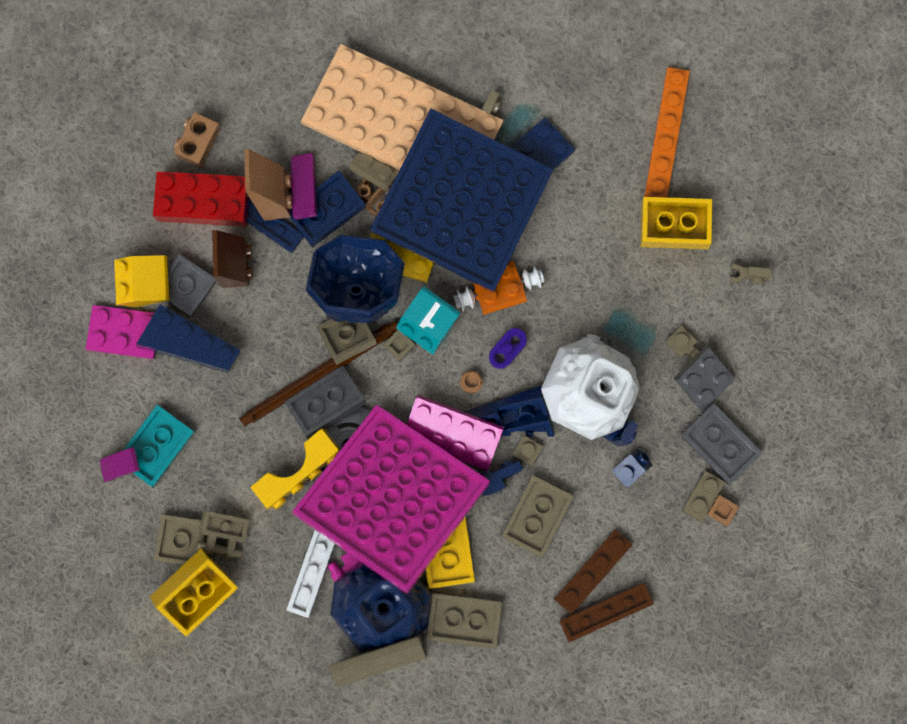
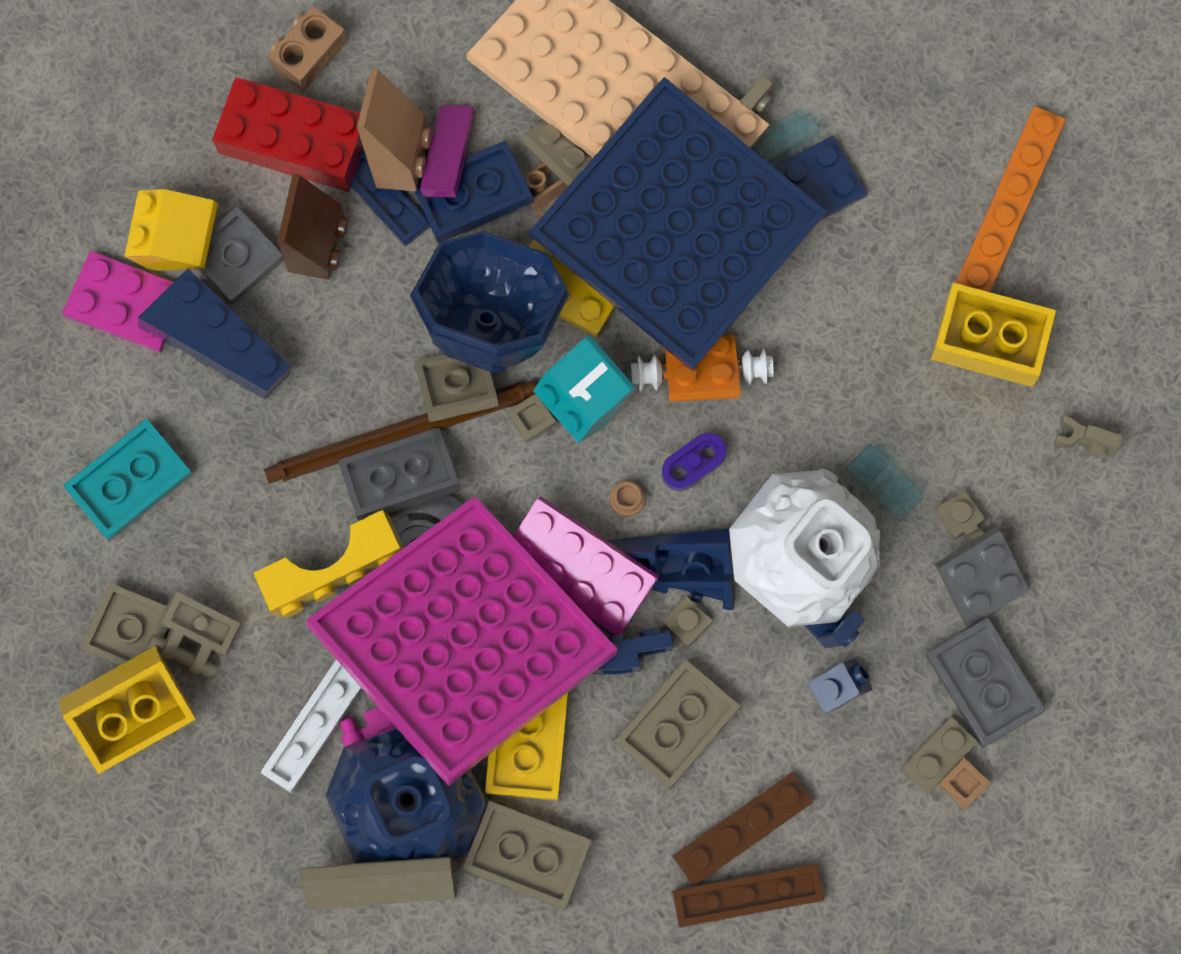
camera: 10 degrees right, 5 degrees down
(119, 465) = (66, 493): magenta slope -> none

